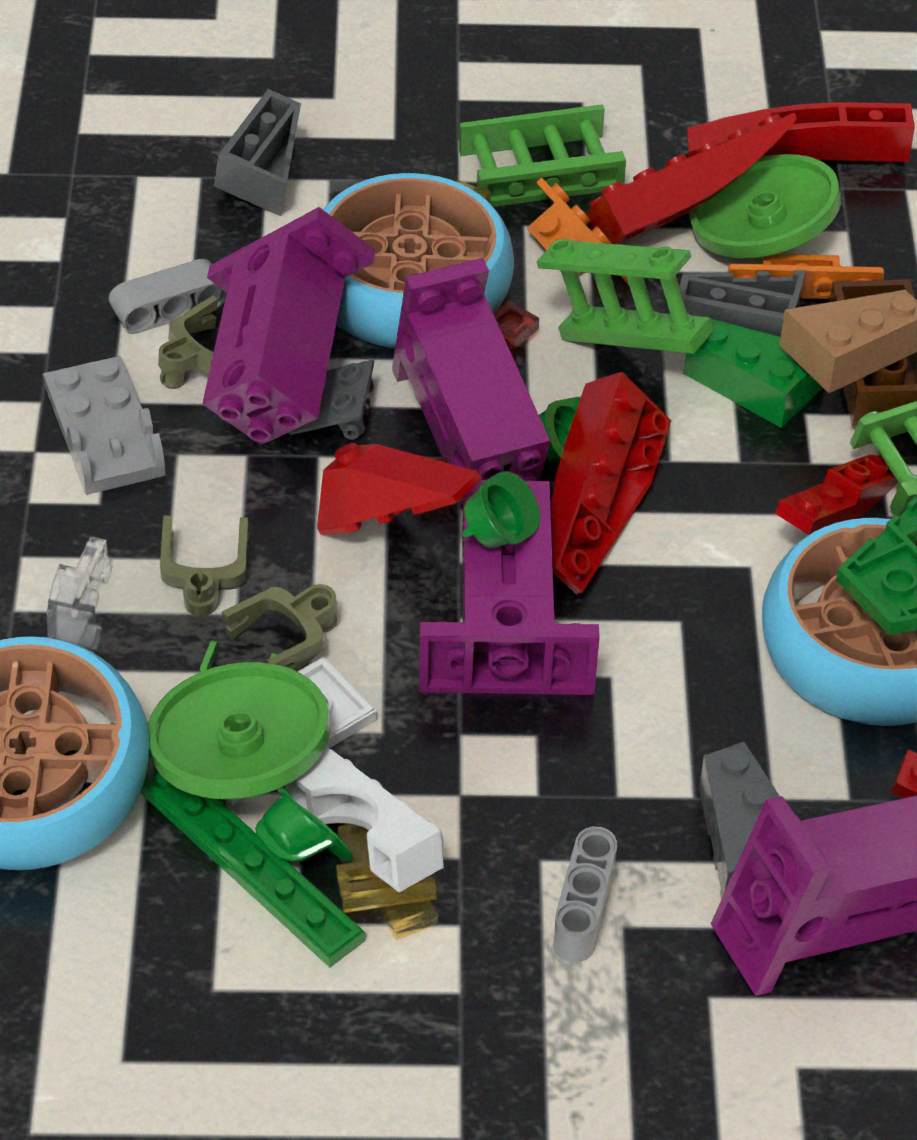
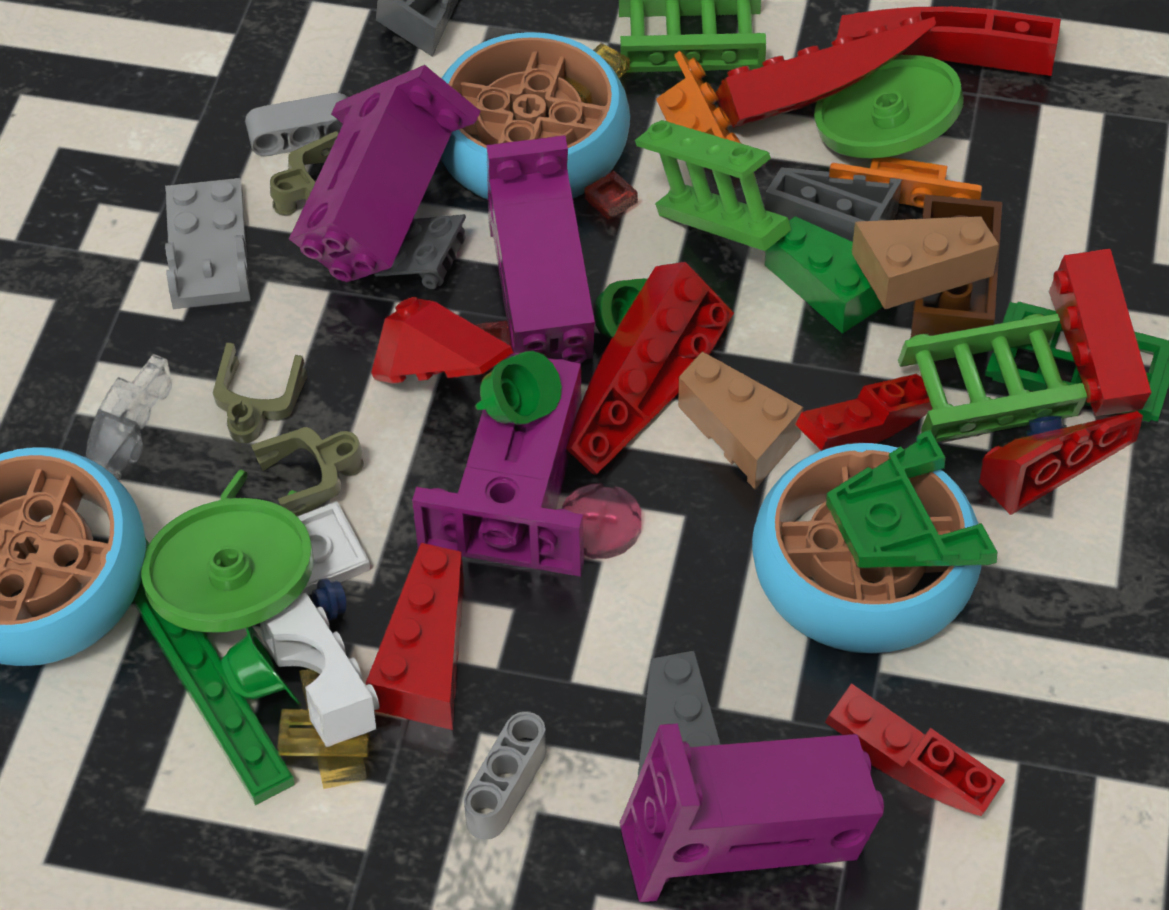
camera: 15 degrees right, 5 degrees up
(350, 747) = (330, 597): none -> dark blue plate
(463, 777) = (421, 644): none -> red wedge
(618, 632) = (609, 519): none -> clear pink tile
(710, 515) = (739, 415): none -> medium nougat wedge

